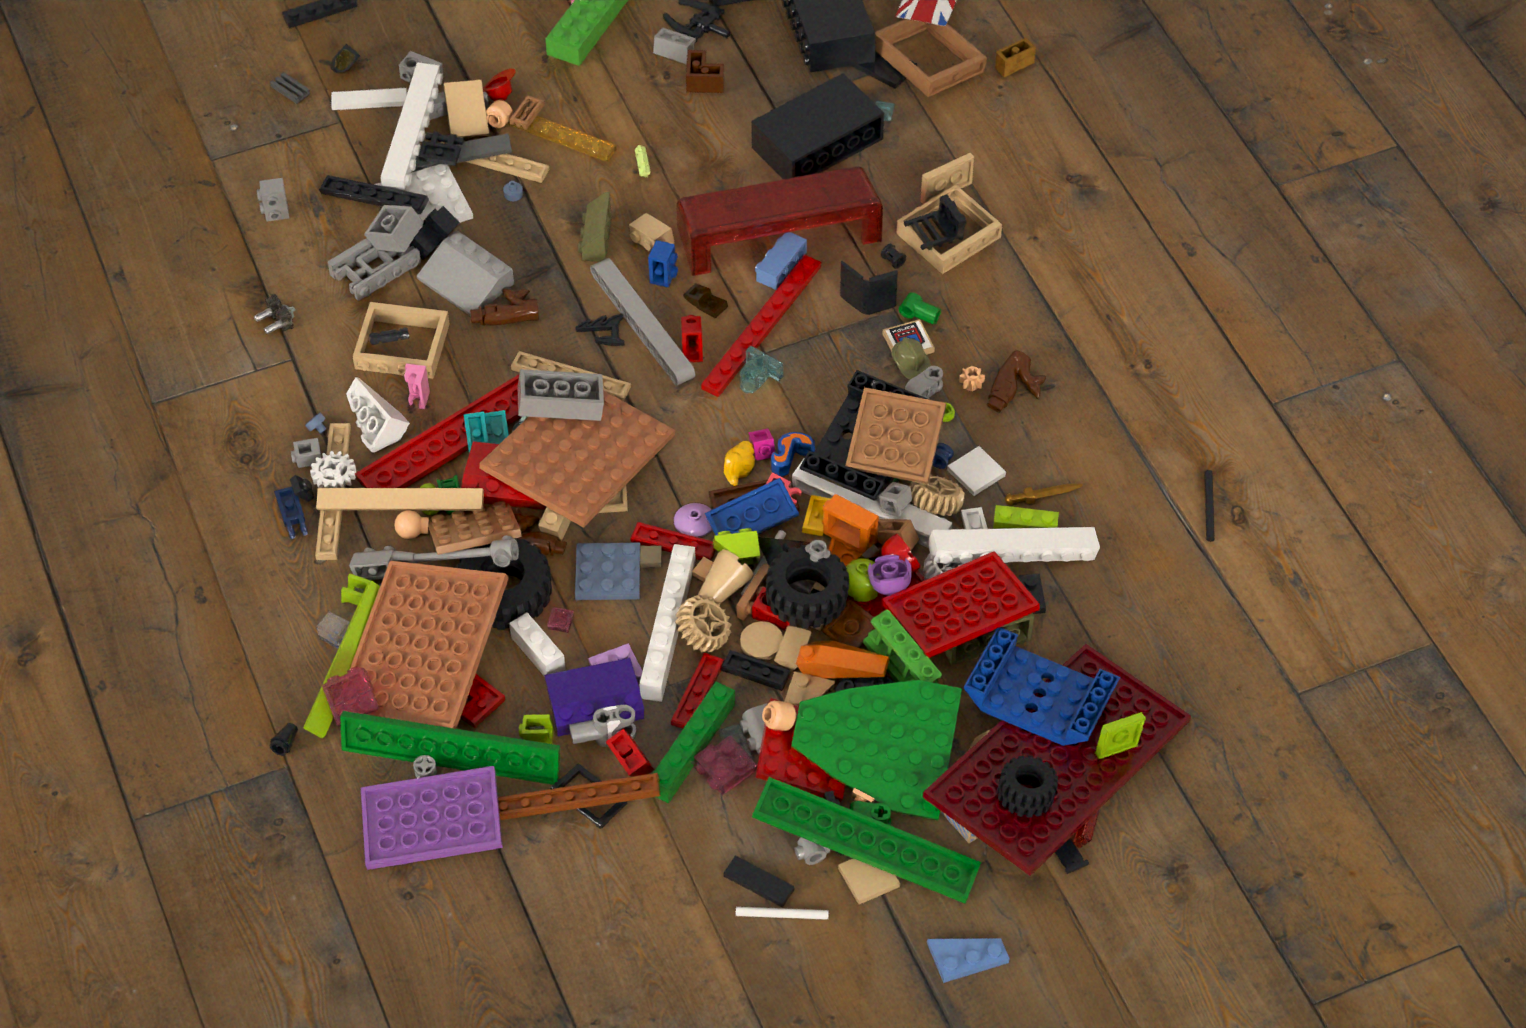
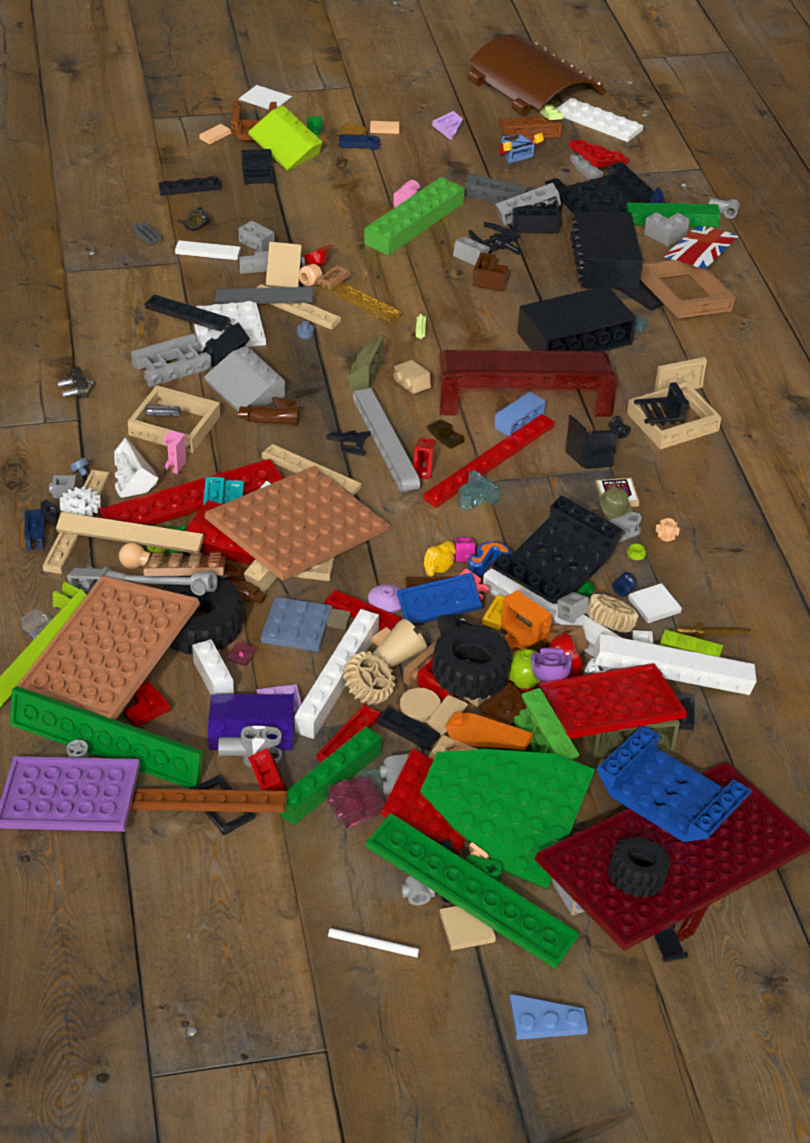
camera: 10 degrees right, 10 degrees down
(273, 199) = (102, 302): light grey brick -> none
(350, 693) = (30, 673): clear pink plate -> none
(394, 228) = (193, 333): light grey brick -> none
(411, 126) = (233, 268): white brick -> none
(441, 153) = (253, 288): black plate -> none
(537, 728) = (191, 735): lime window -> none
(560, 395) = (293, 473): light grey brick -> none
(662, 263) = (414, 398): blue brick -> none
(742, 544) = (422, 617): lime slope -> none
(758, 881) = (359, 910): black tile -> none
(779, 715) = (415, 761): light nougat head -> none
(817, 545) = (487, 629): light grey plate -> none
(896, 435) = (584, 552): medium nougat plate -> none
(915, 307) = (629, 467): green piece -> none
(1005, 383) = (697, 538): reddish brown piece -> none
(1015, 57) = (760, 301): pearl gold brick -> none
(1120, 735) = (741, 840): lime tile -> none

